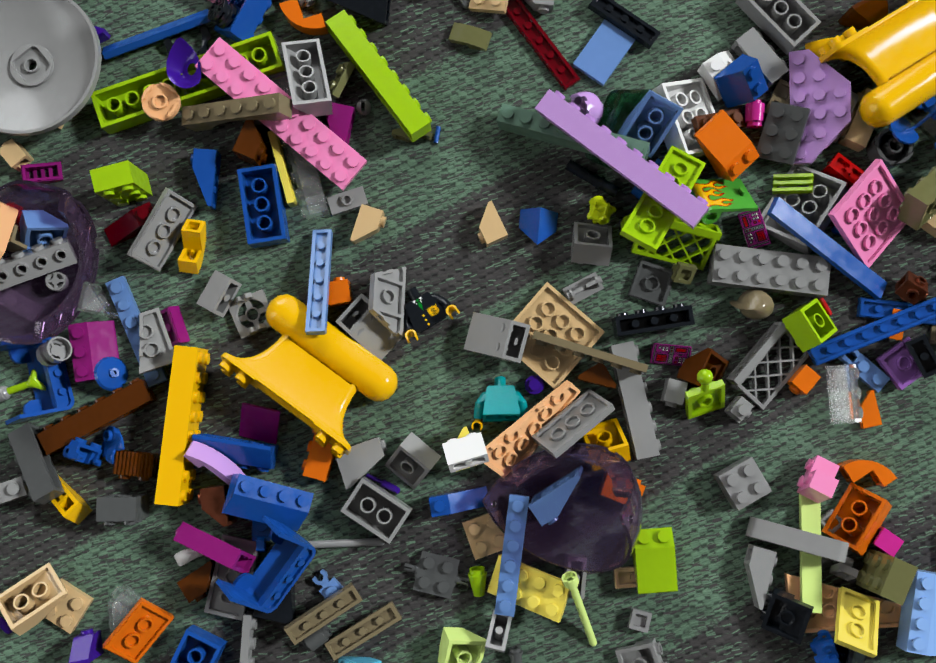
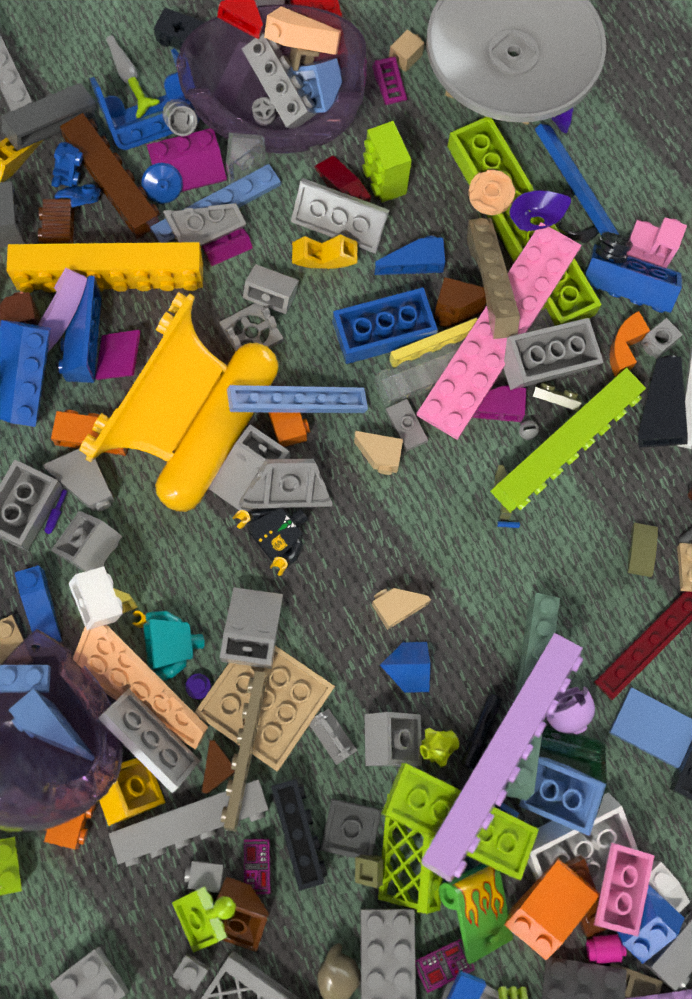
camera: 75 degrees right, 10 degrees down
(720, 91) = (624, 890): none -> bright pink slope

